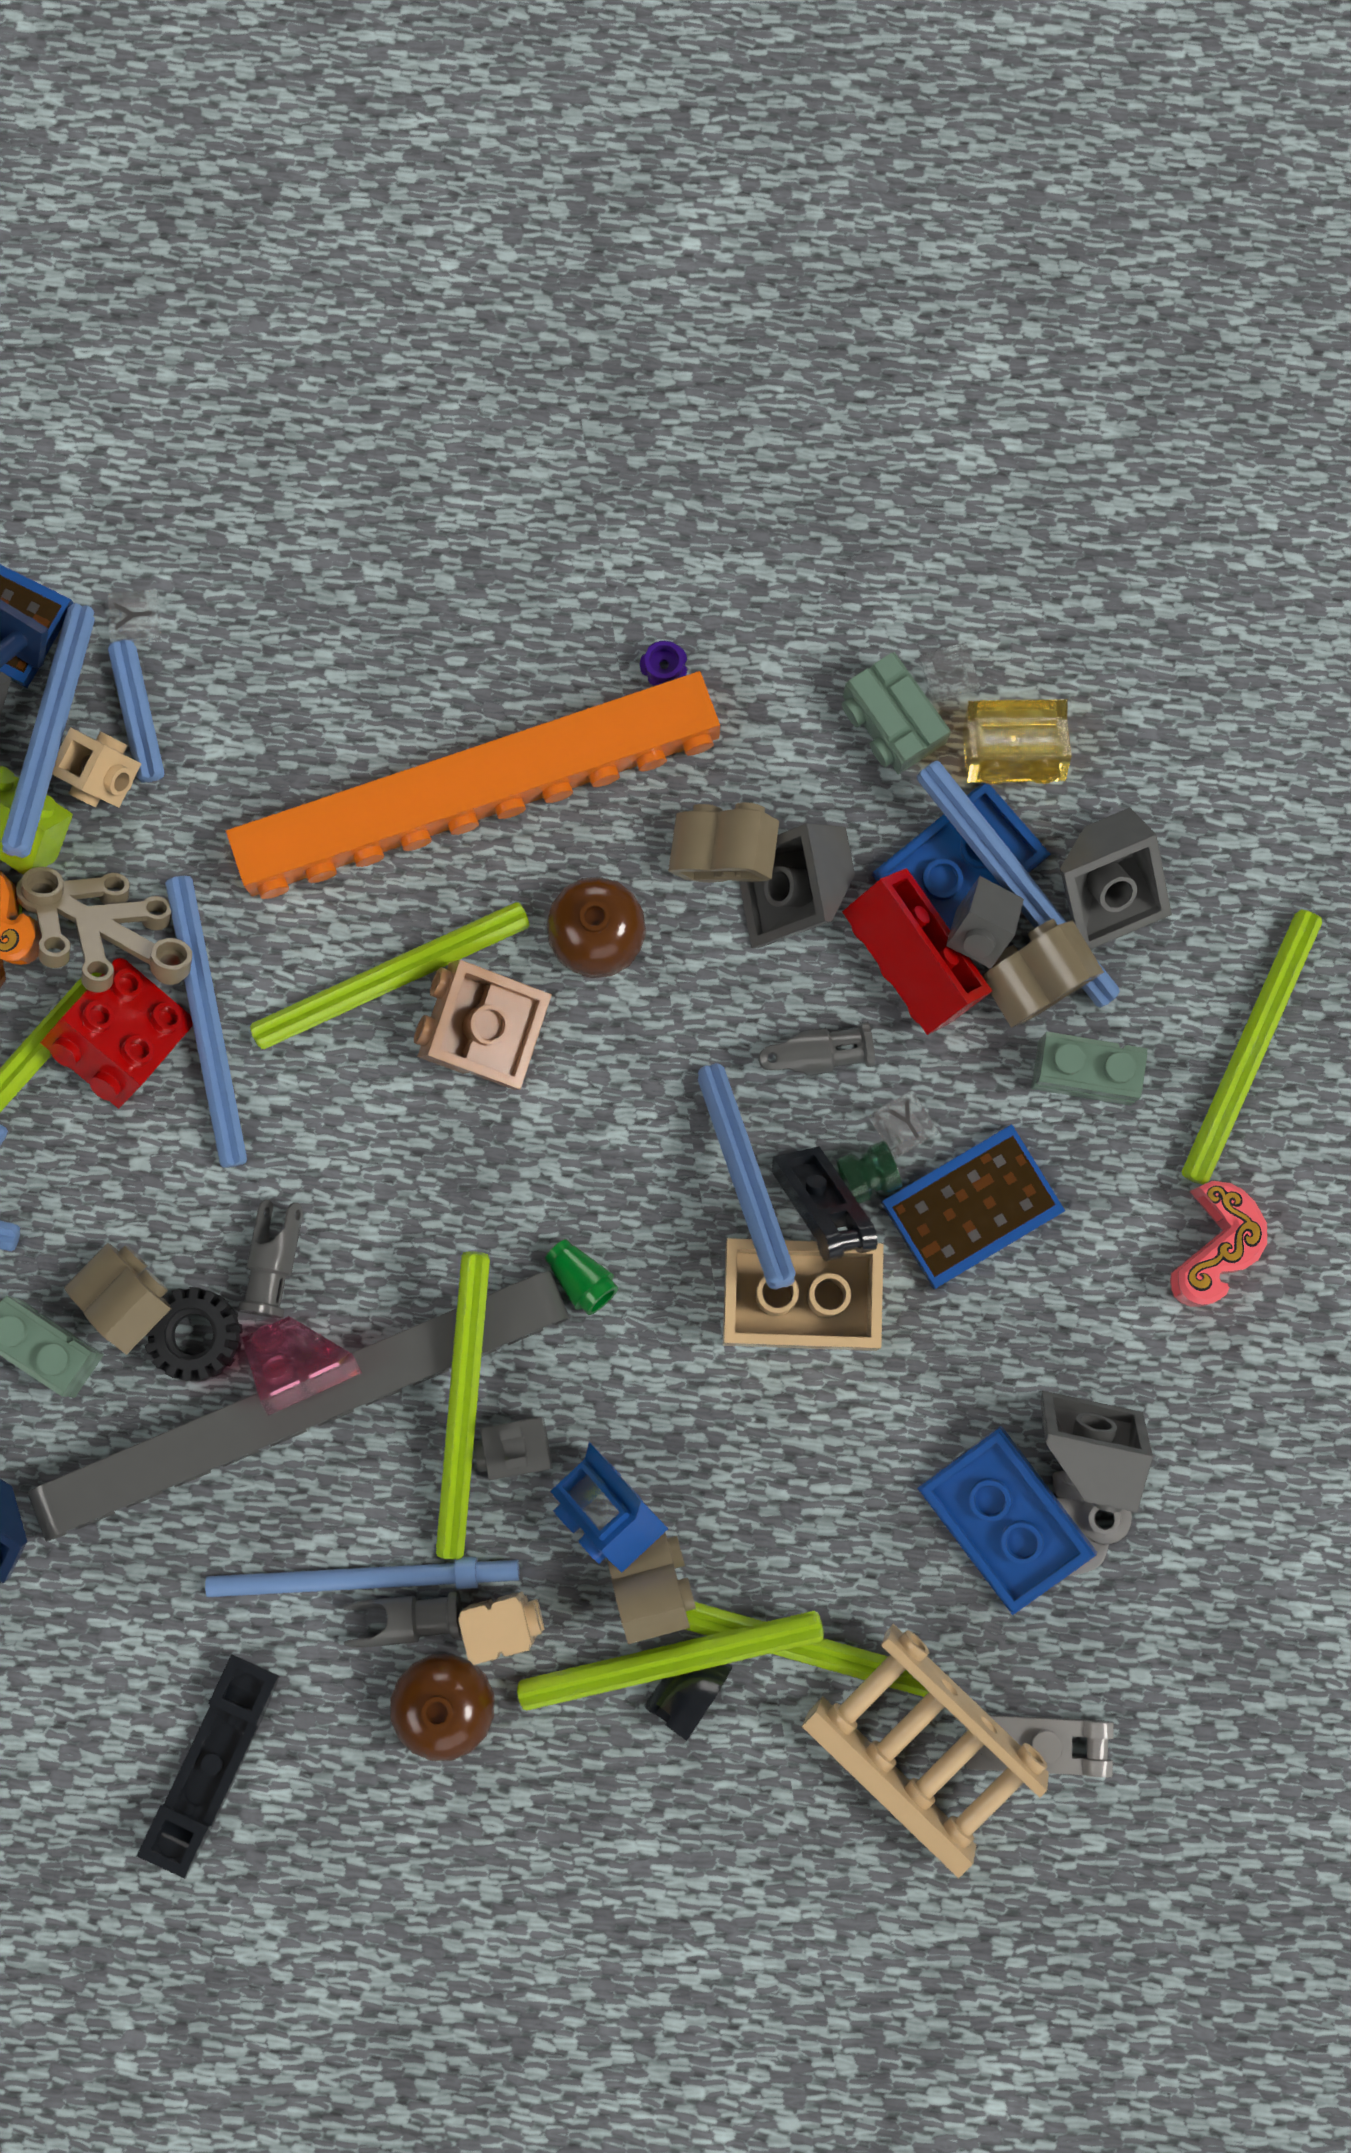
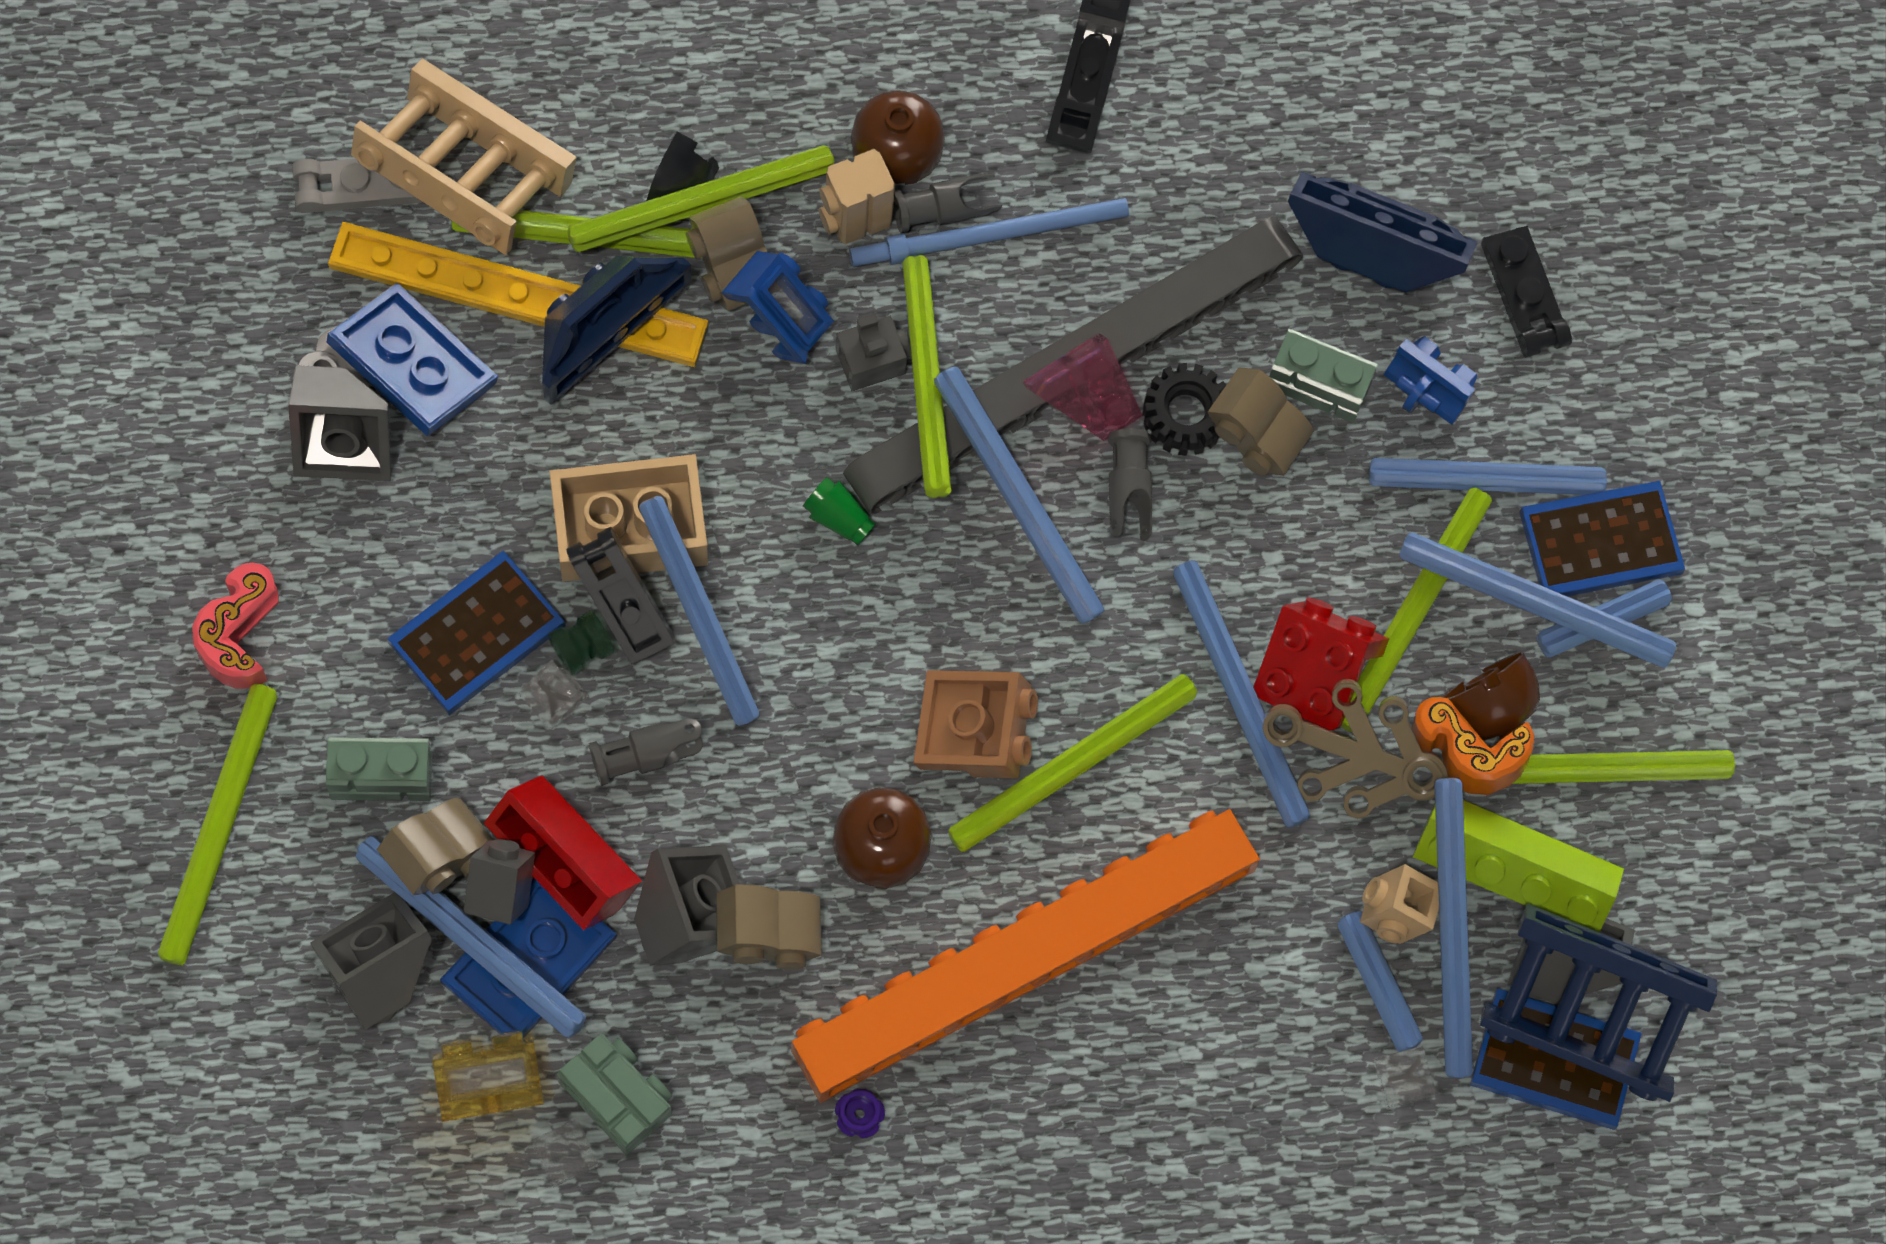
camera: 165 degrees right, 10 degrees down
(391, 1259) = (1018, 495): none -> medium blue axle
(800, 1530) = (604, 314): none -> dark blue wedge
(884, 1584) = (495, 288): none -> yellow tile

